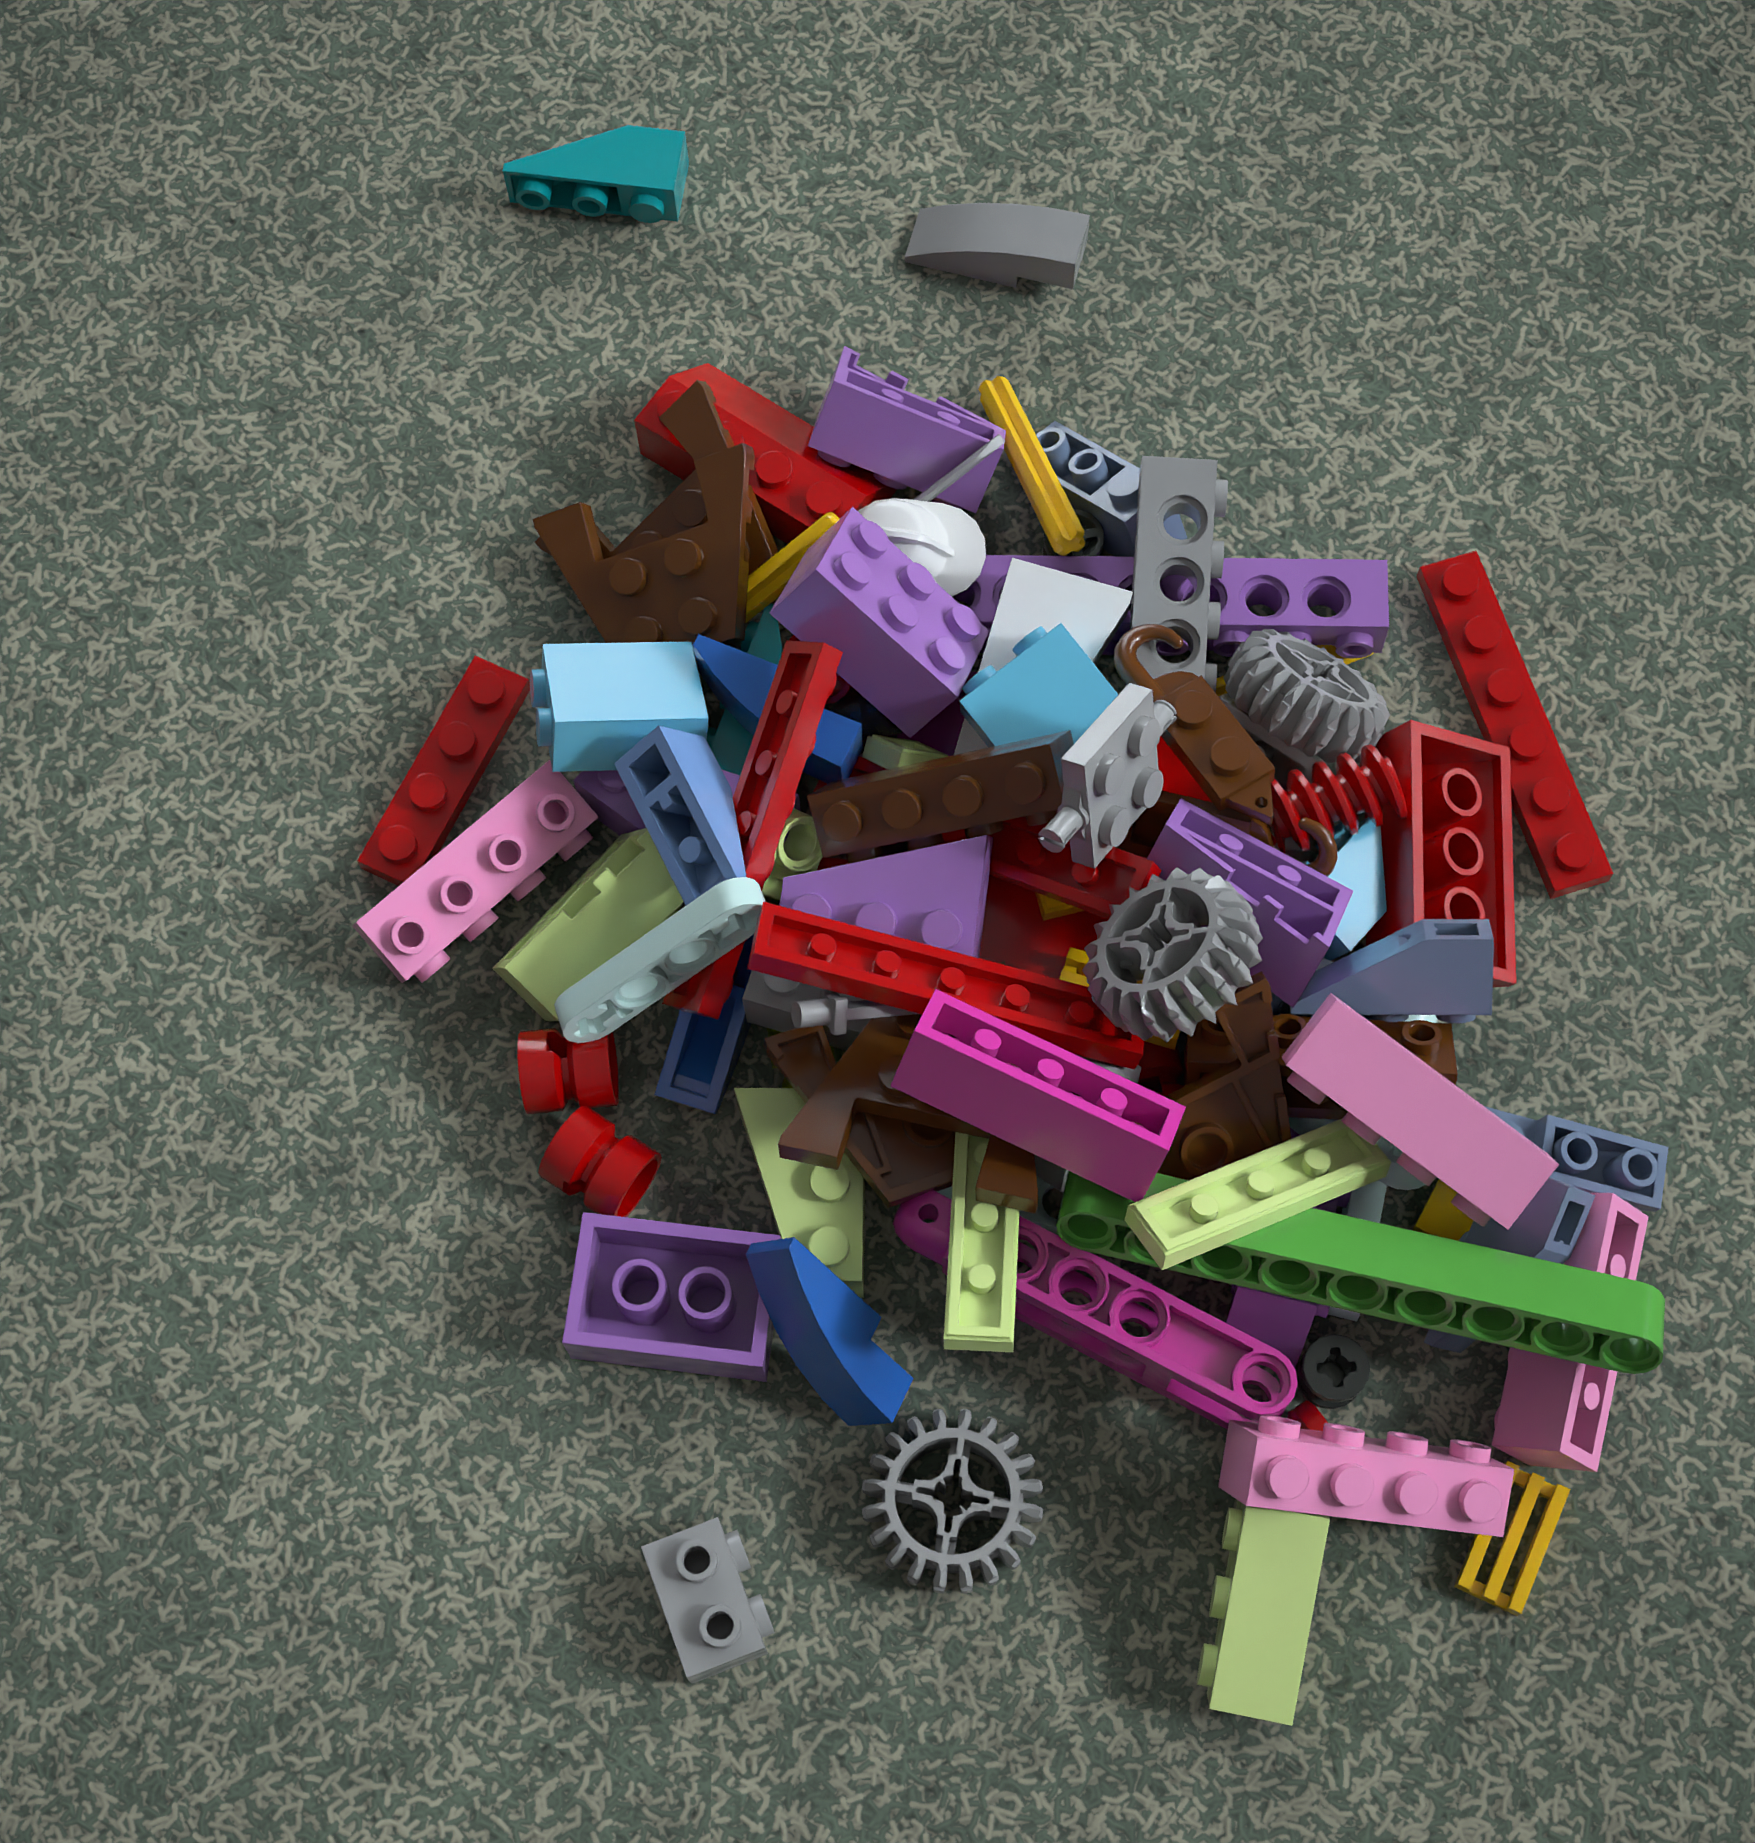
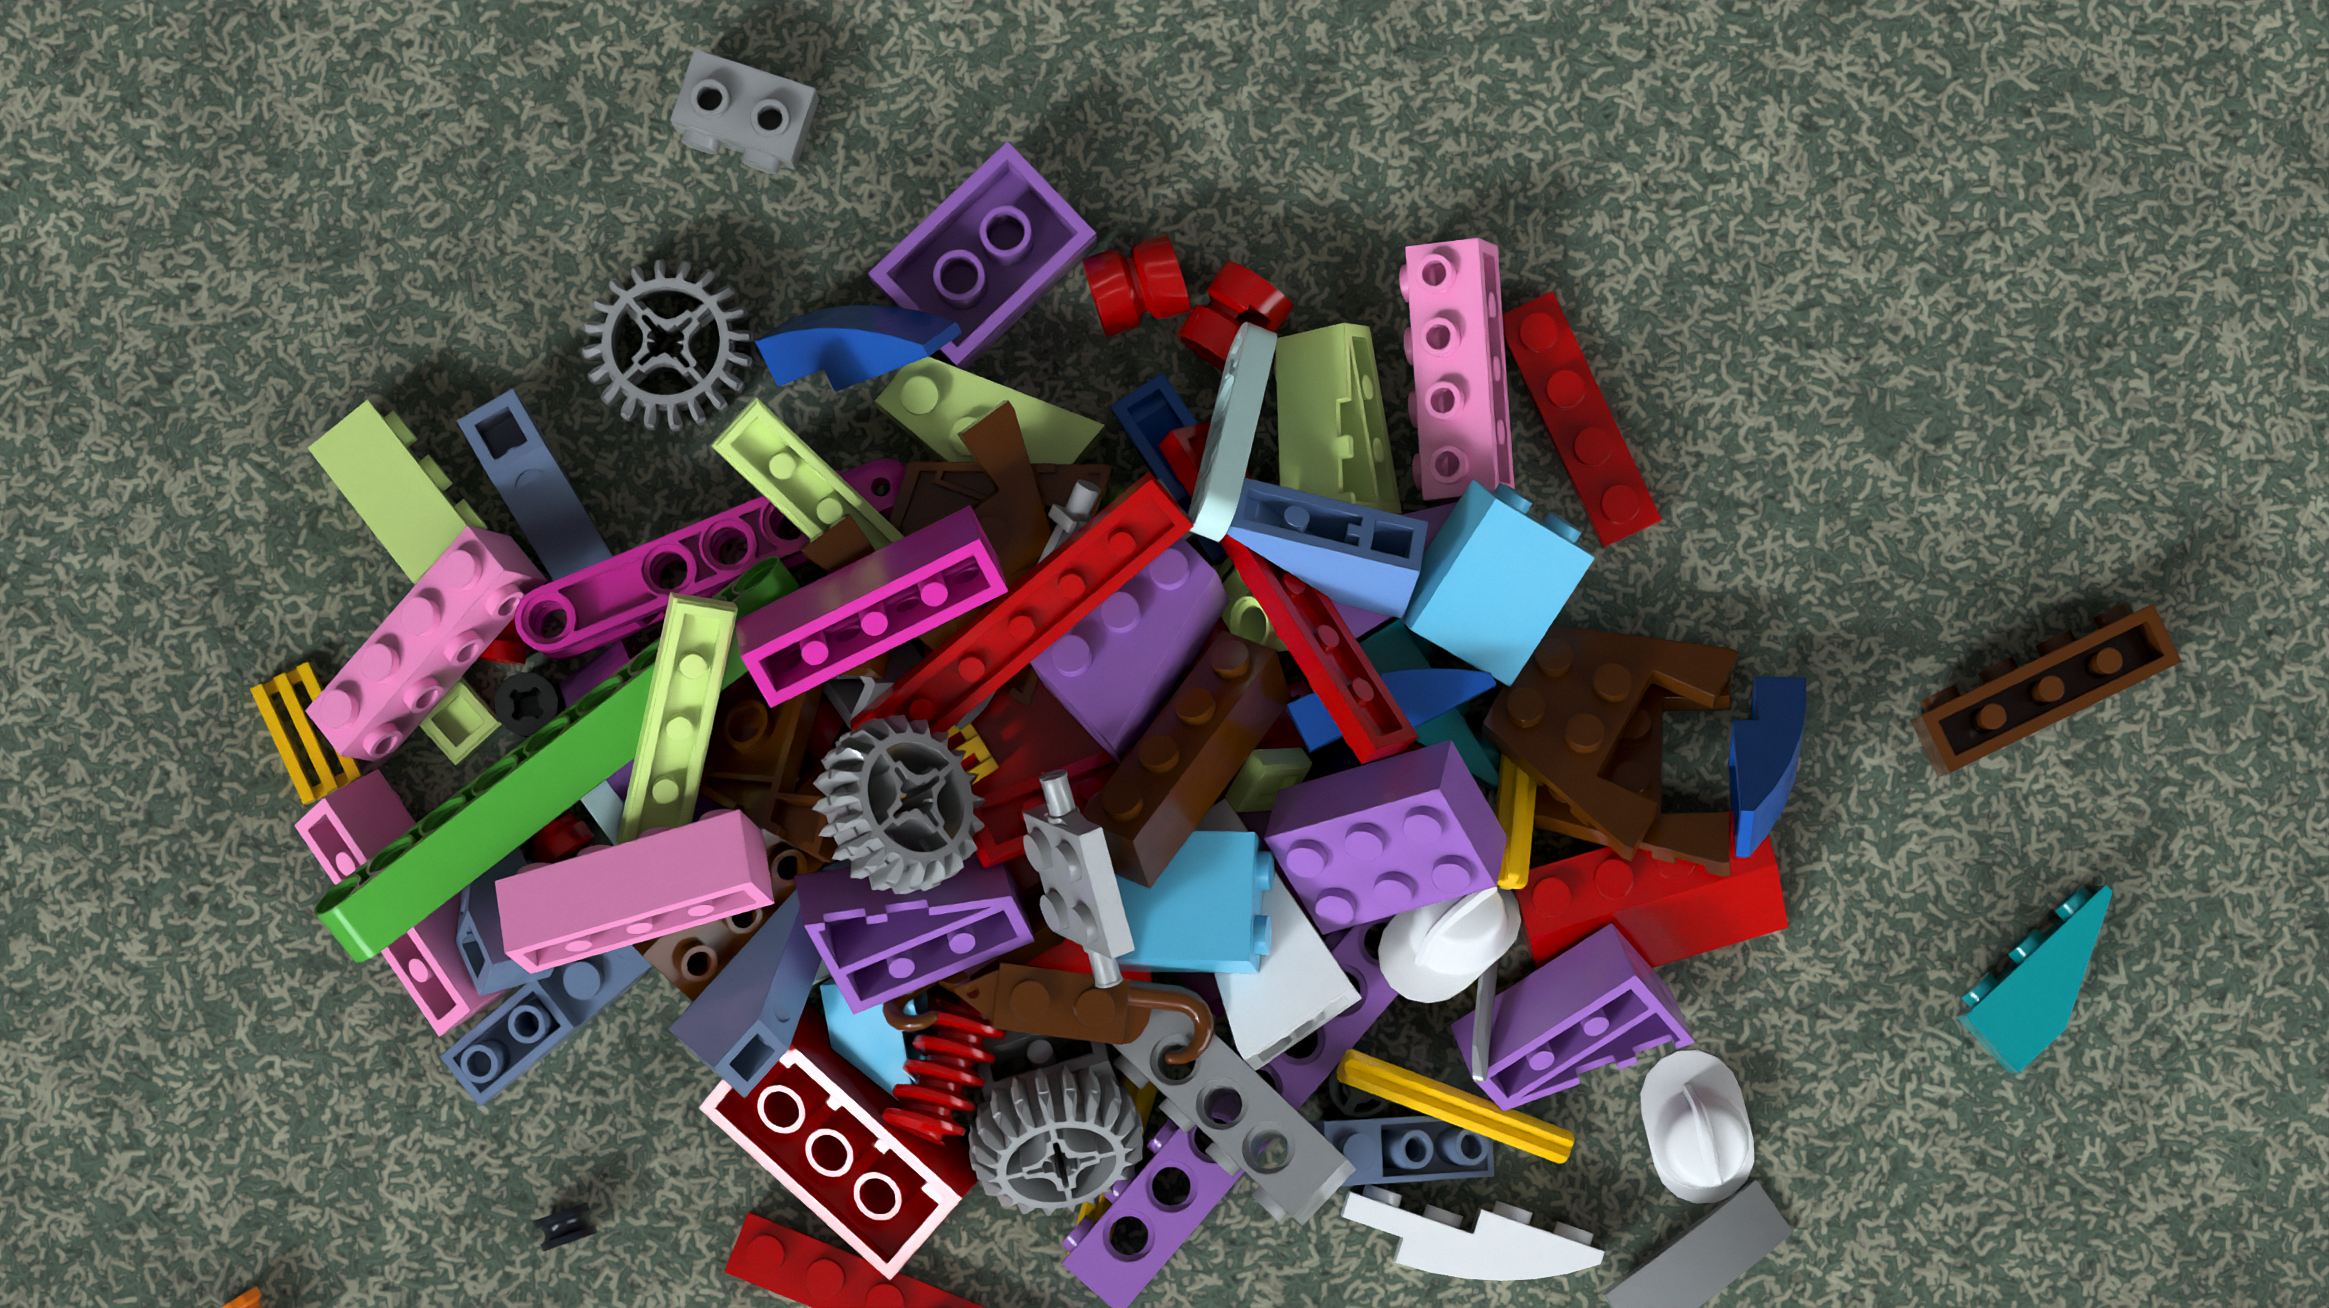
camera: 130 degrees right, 15 degrees up
(392, 309) = (2042, 692): none -> reddish brown brick
(598, 436) = (1765, 758): none -> blue slope
(902, 317) = (1697, 1126): none -> white piece
(1107, 377) = (1496, 1248): none -> white slope
(1160, 1509) = (534, 485): none -> sand blue slope
(1394, 1410) = (461, 722): none -> yellowish green tile
(1692, 1012) = (565, 1227): none -> black bush

